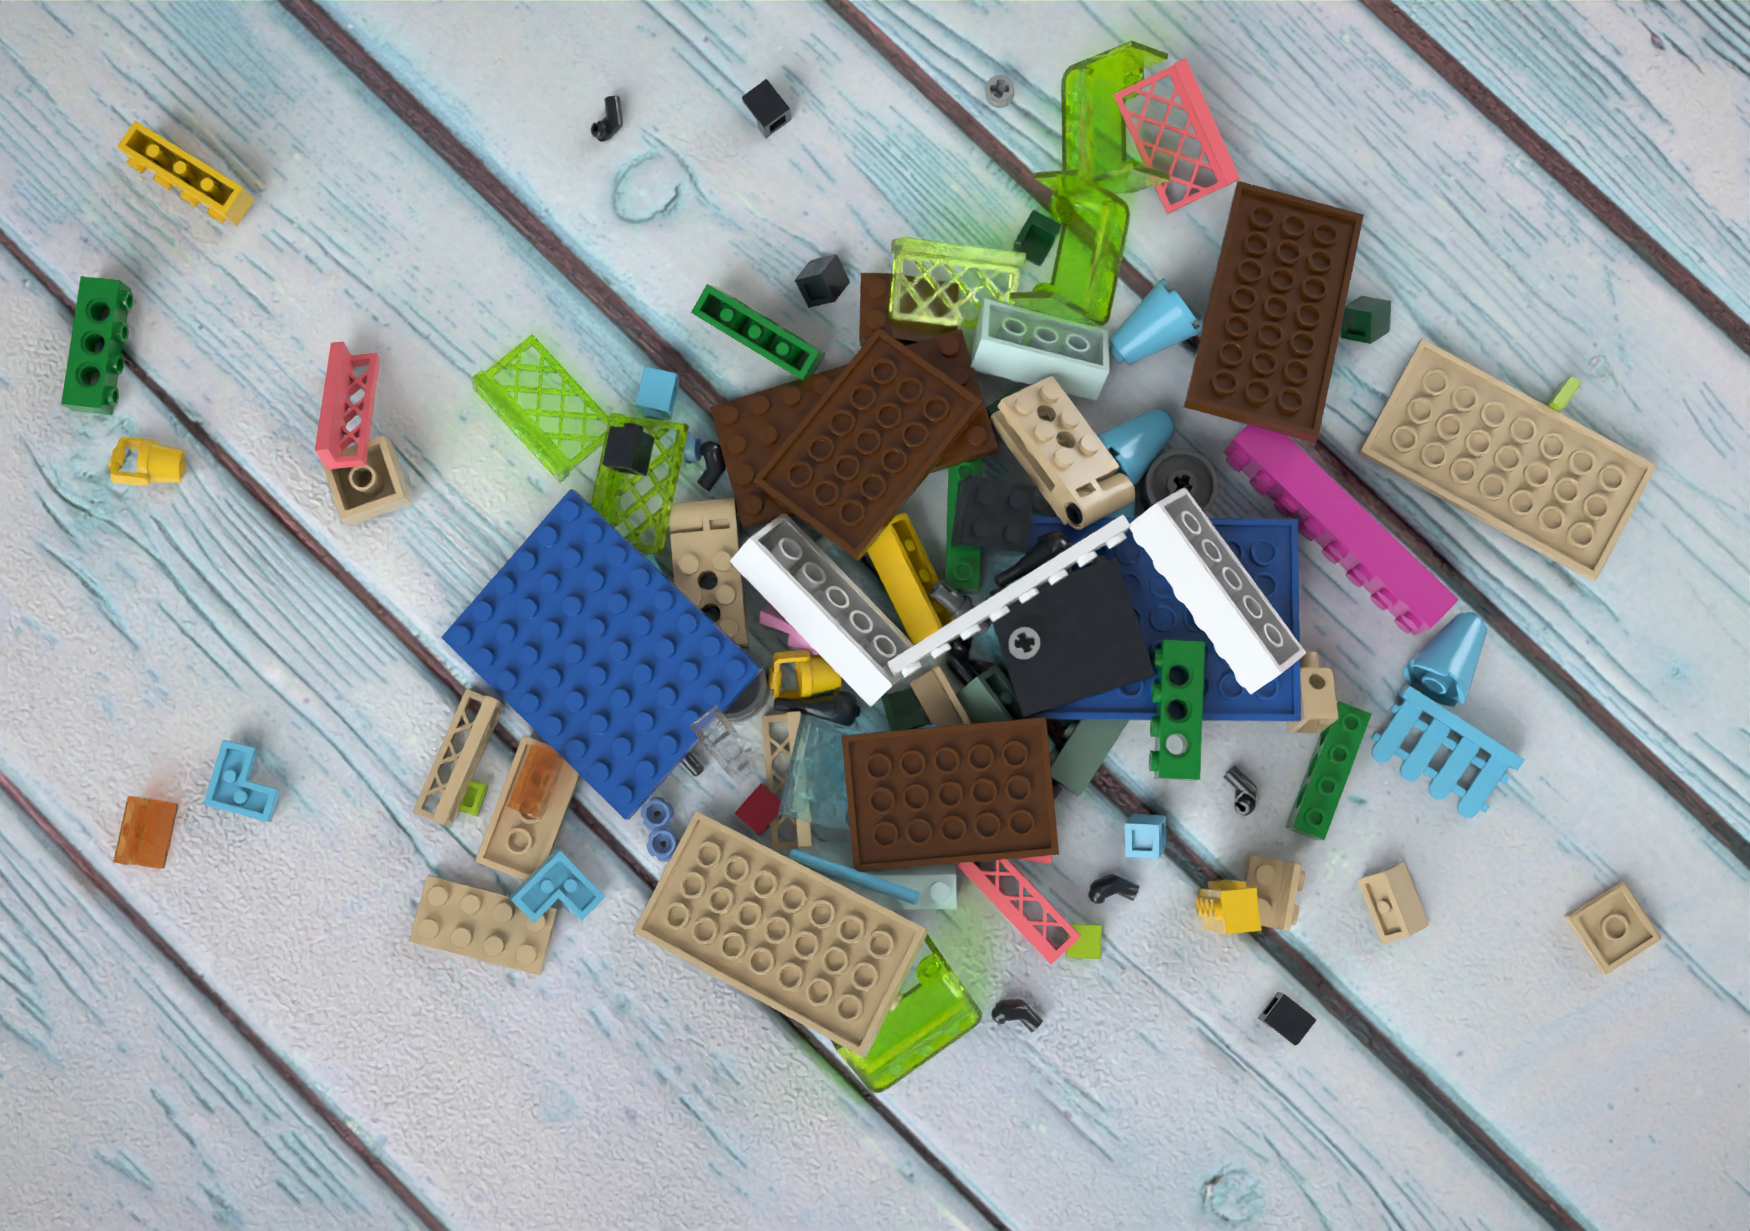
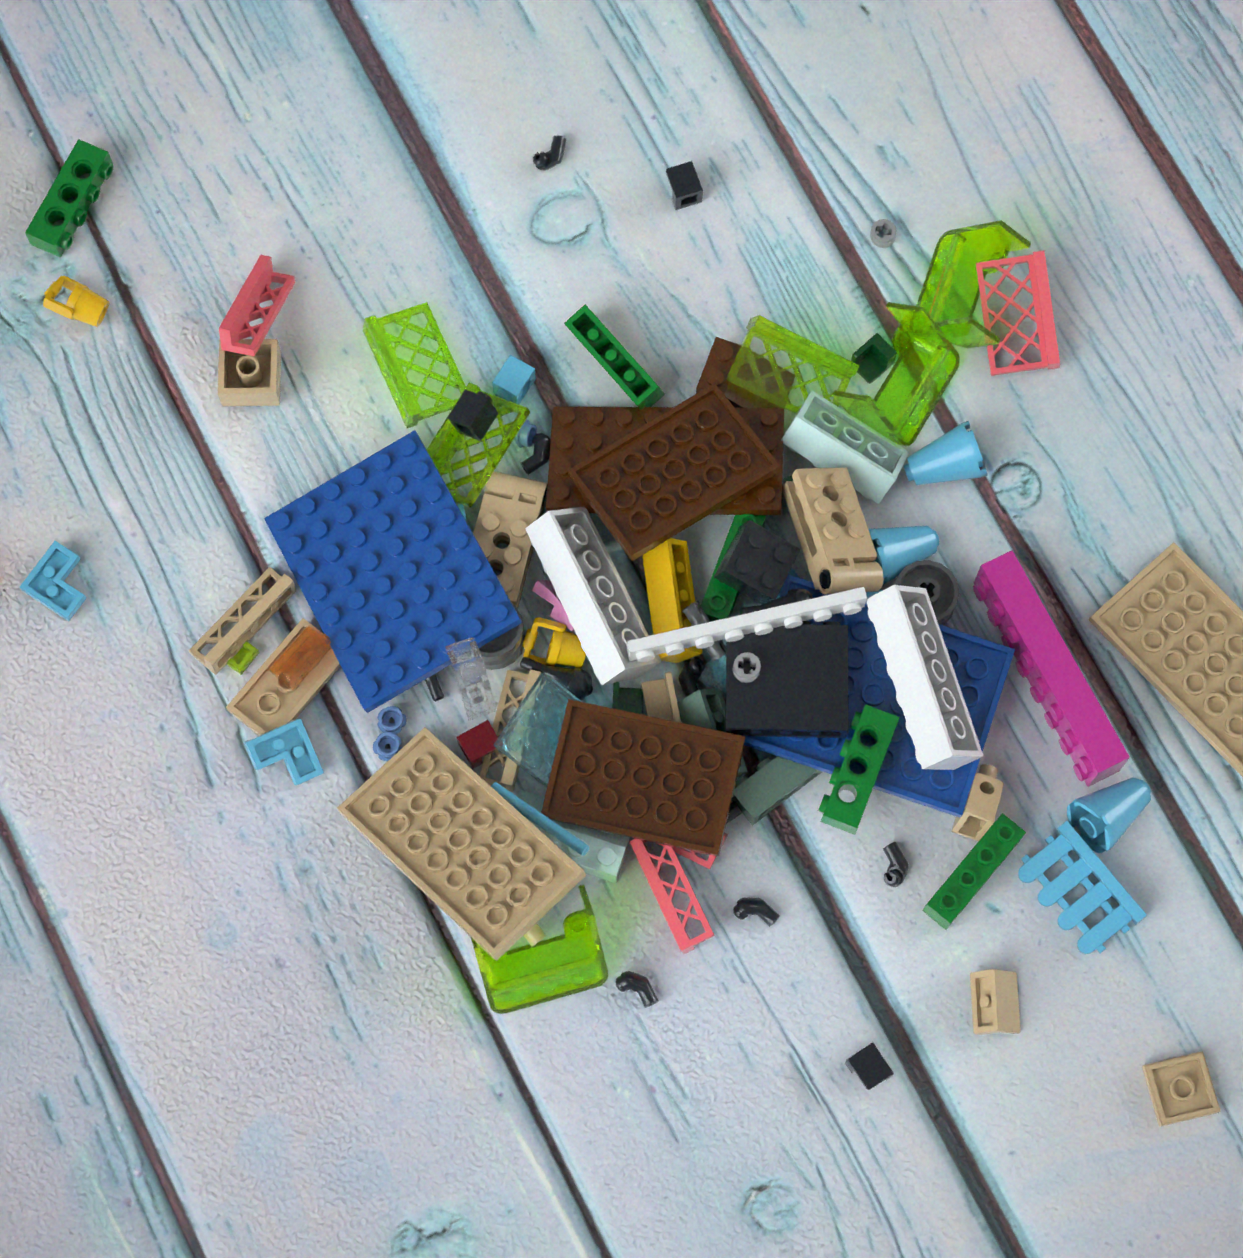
camera: 15 degrees right, 10 degrees down
(186, 173) = (192, 87): yellow brick -> none
(481, 925) = (212, 763): tan plate -> none
(822, 281) = (682, 336): black panel -> none
(1089, 943) = (717, 948): lime tile -> none
(1145, 836) = (798, 871): medium azure brick -> none
(1229, 907) = (846, 945): yellow brick -> none
(1275, 312) = (1052, 476): reddish brown plate -> none
(1276, 890) = (886, 957): tan bracket -> none
(1366, 319) = (1131, 512): dark green panel -> none

